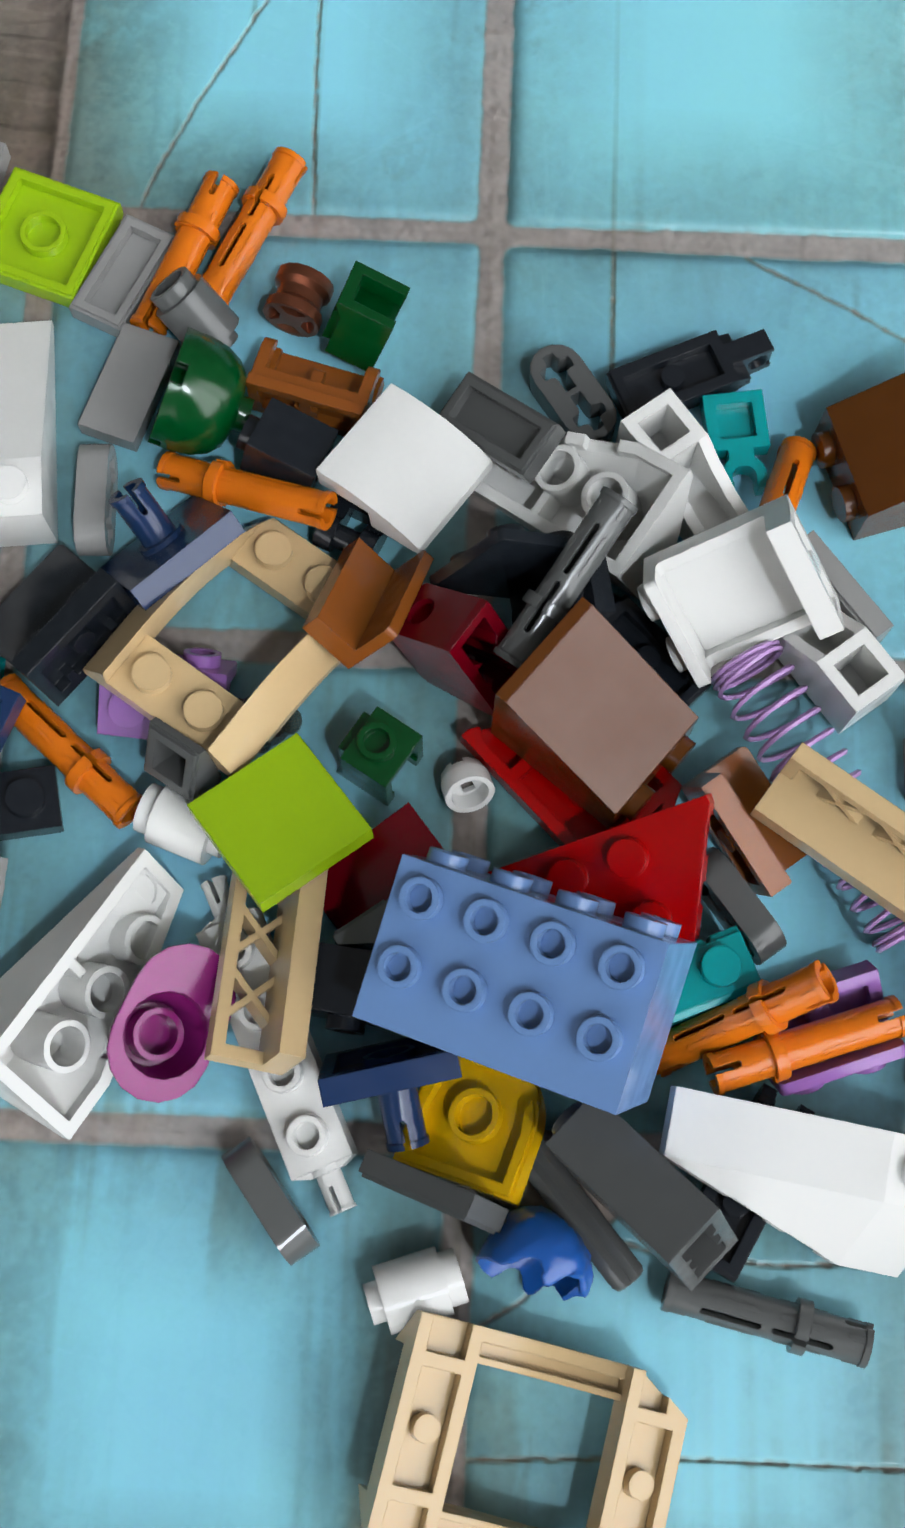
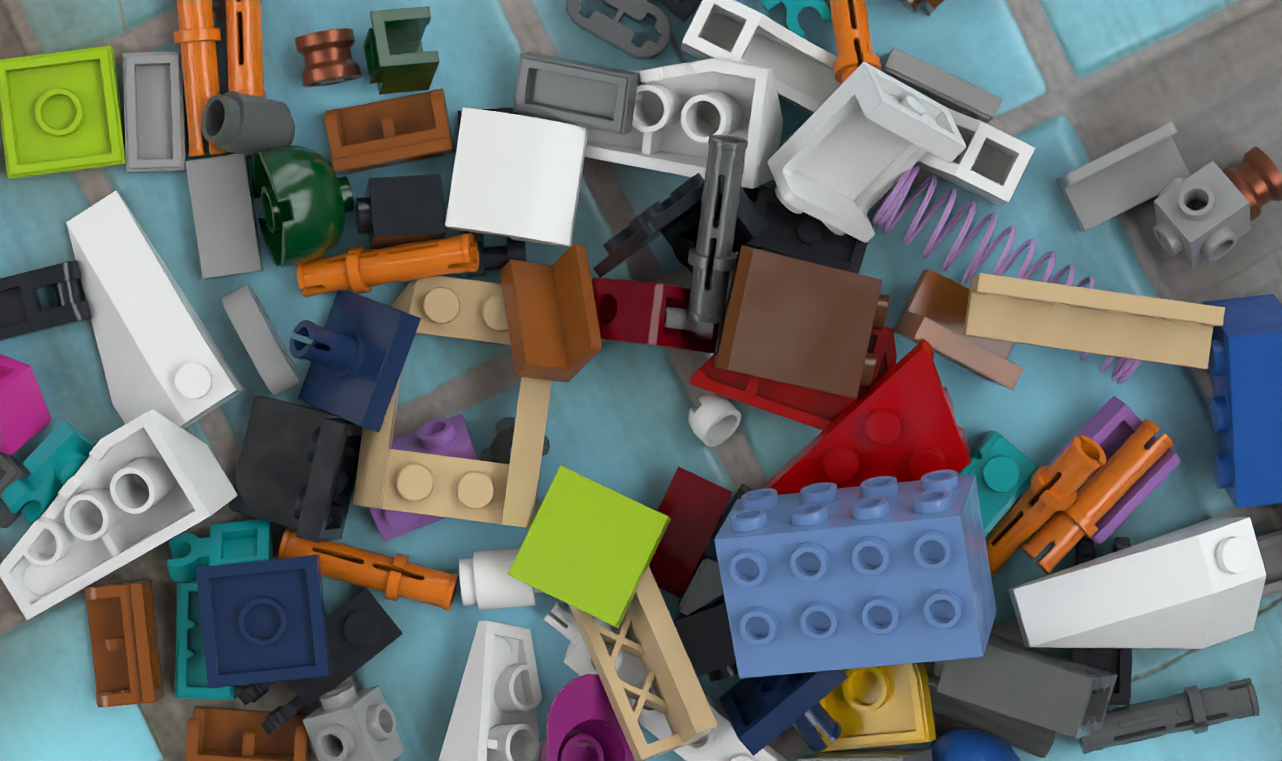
camera: 30 degrees left, 15 degrees up
(179, 761) = (476, 540): dark grey slope -> none
(377, 752) = (630, 437): dark green window -> none
(737, 904) = (990, 406): dark grey beam -> none

